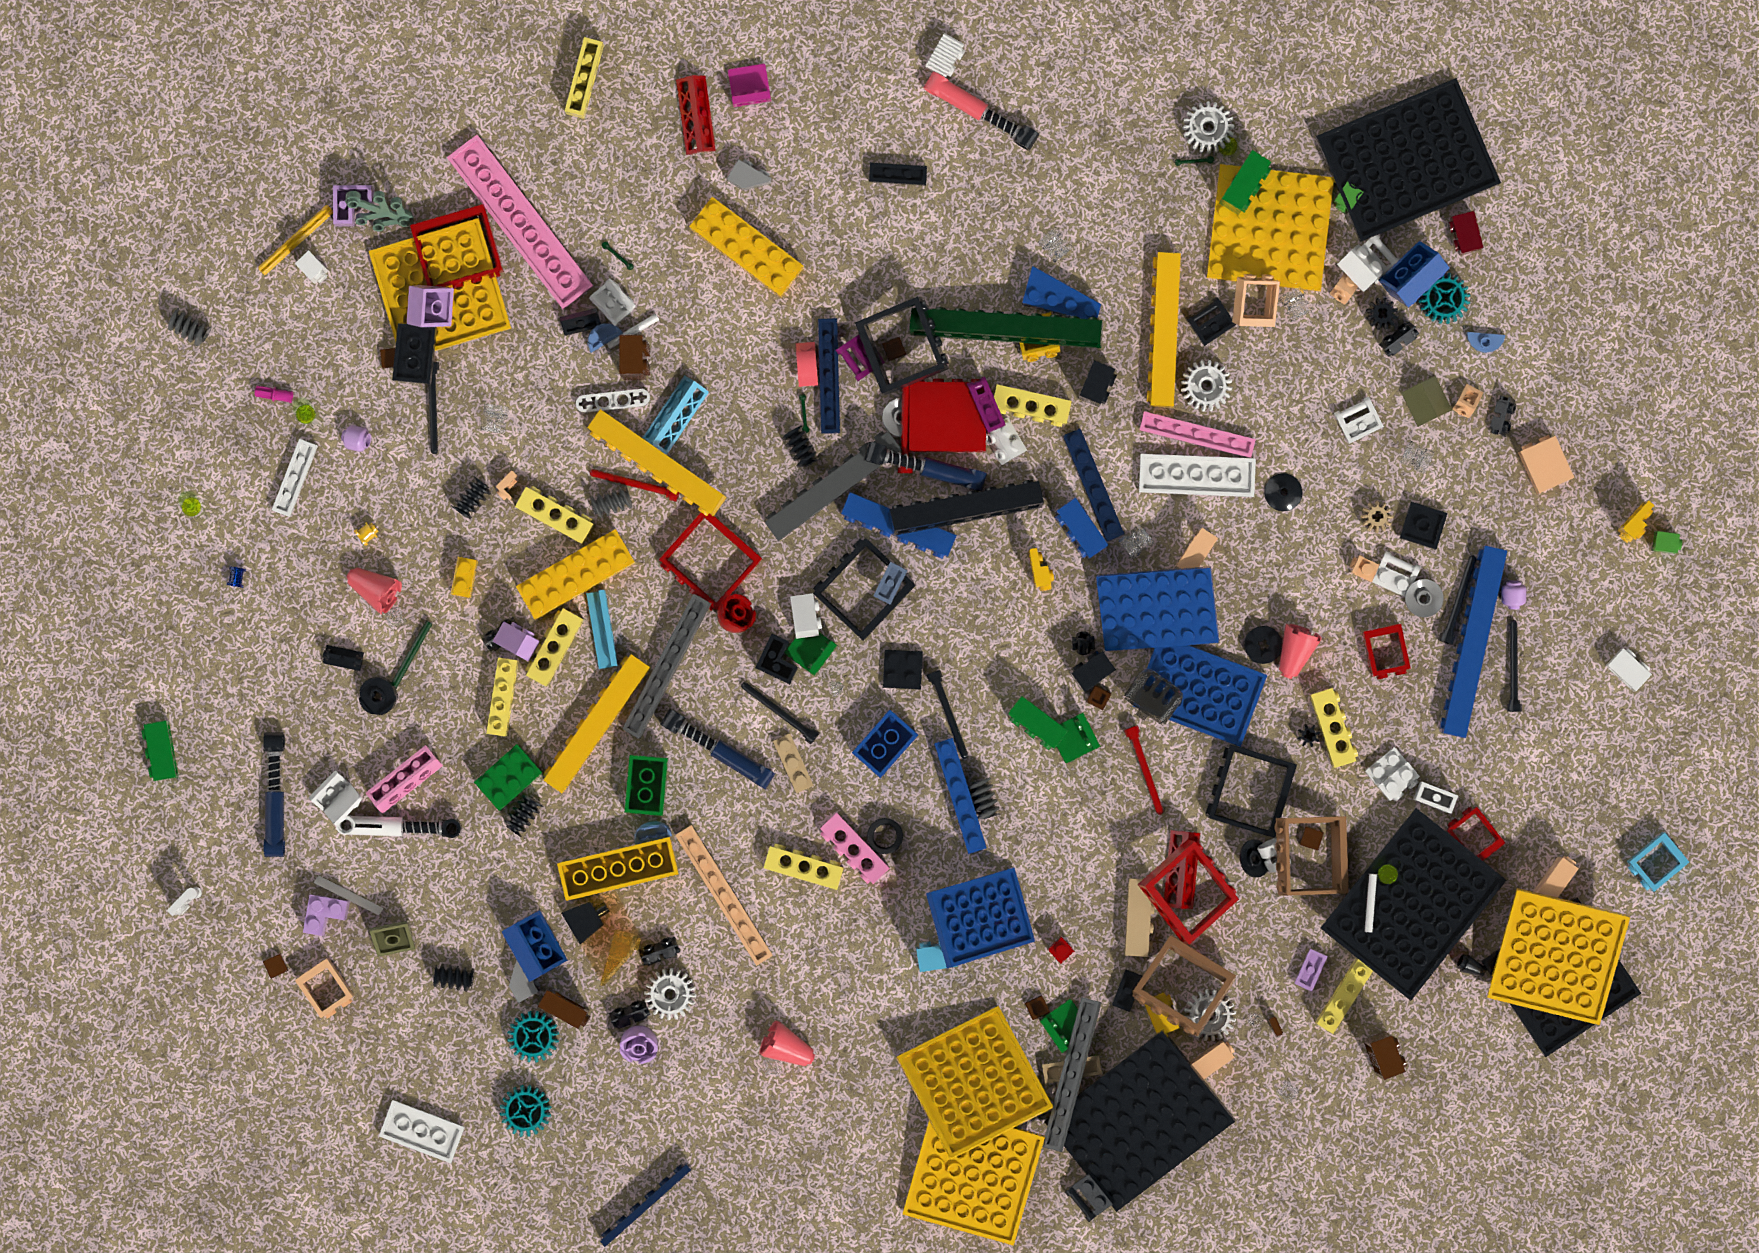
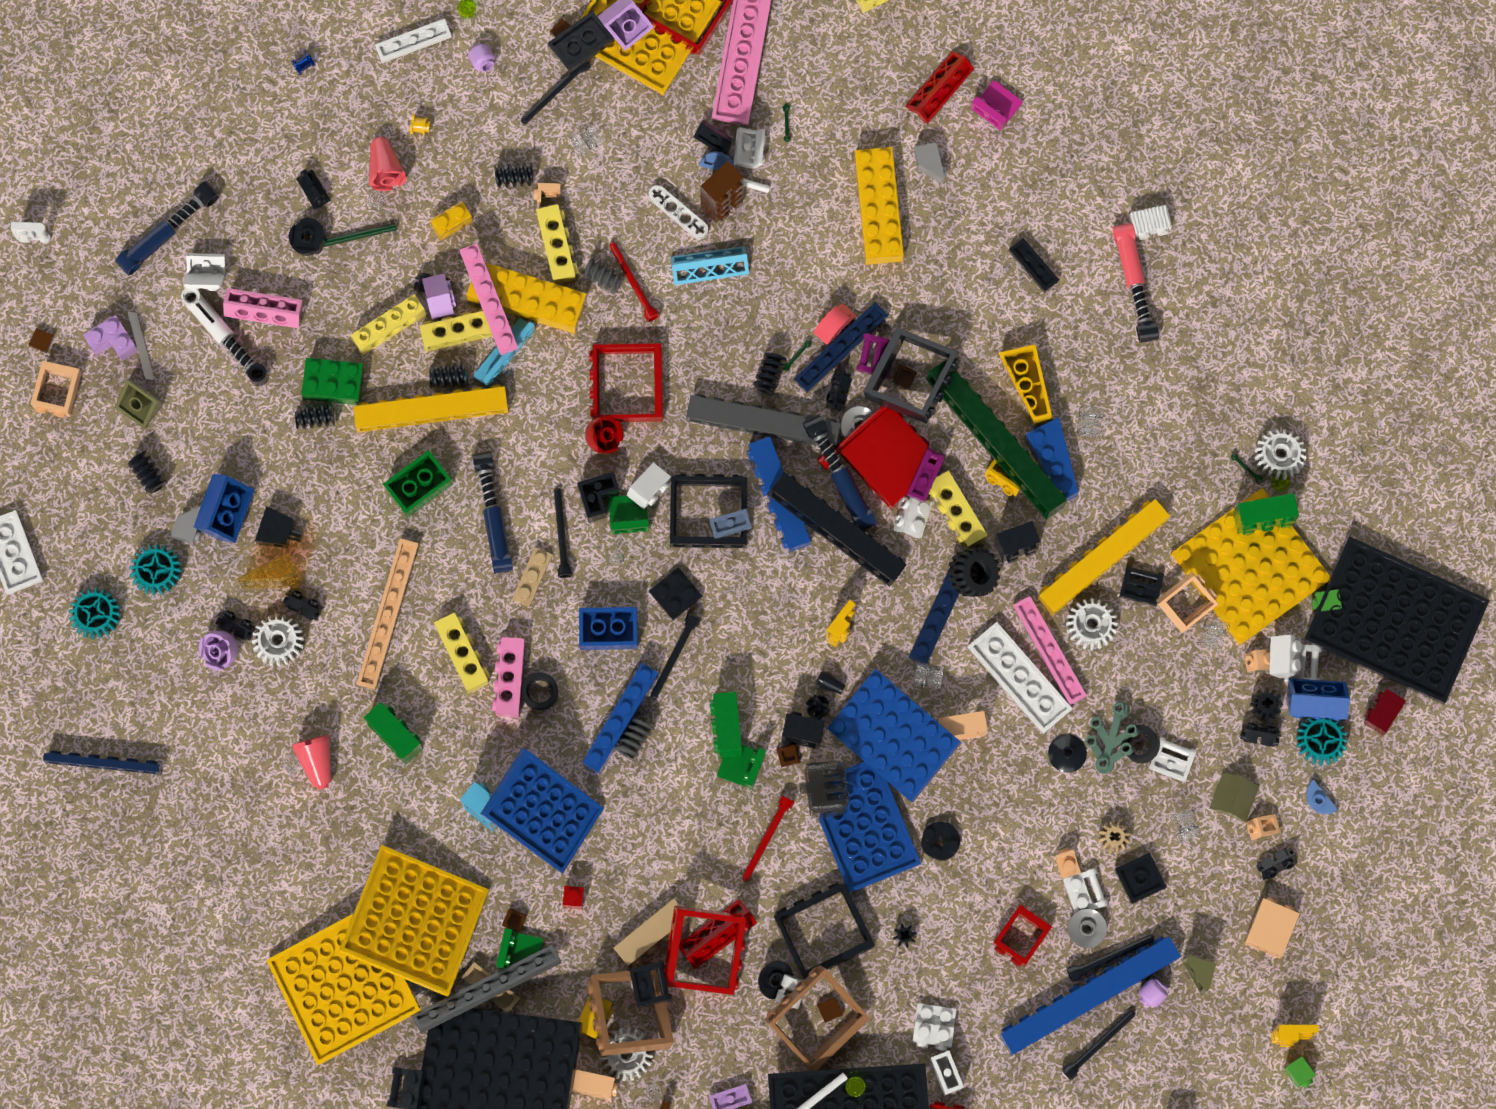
camera: 45 degrees right, 10 degrees down
(160, 751) = (126, 121): green brick -> none
(554, 606) = (488, 299): none -> bright pink plate
(564, 1009) = (196, 571): reddish brown window -> none
(582, 687) = (448, 375): none -> black piece
(618, 868) = (337, 518): yellow brick -> none
(651, 831) = (387, 519): medium blue plate -> none
(656, 462) = (662, 280): yellow brick -> none
(666, 666) = (519, 420): dark grey plate -> none
(819, 971) = (394, 732): none -> green brick
(854, 401) = (839, 381): none -> black hinge
(981, 260) = (1027, 377): none -> yellow wedge
(1073, 617) = (830, 682): none -> black cone
(1079, 443) = (986, 568): none -> black tyre
(1080, 529) = (899, 627): blue brick -> none
(1124, 995) = (580, 977): black plate -> none
(1177, 960) = (644, 986): none -> black plate
(1296, 649) = (960, 867): coral cone -> none
(1304, 451) = (1111, 740): none -> sand green plant
(1319, 700) = (938, 920): light yellow brick -> none
(1327, 419) = (1153, 750): none -> black tyre
(1532, 546) = (1200, 972): none -> olive slope

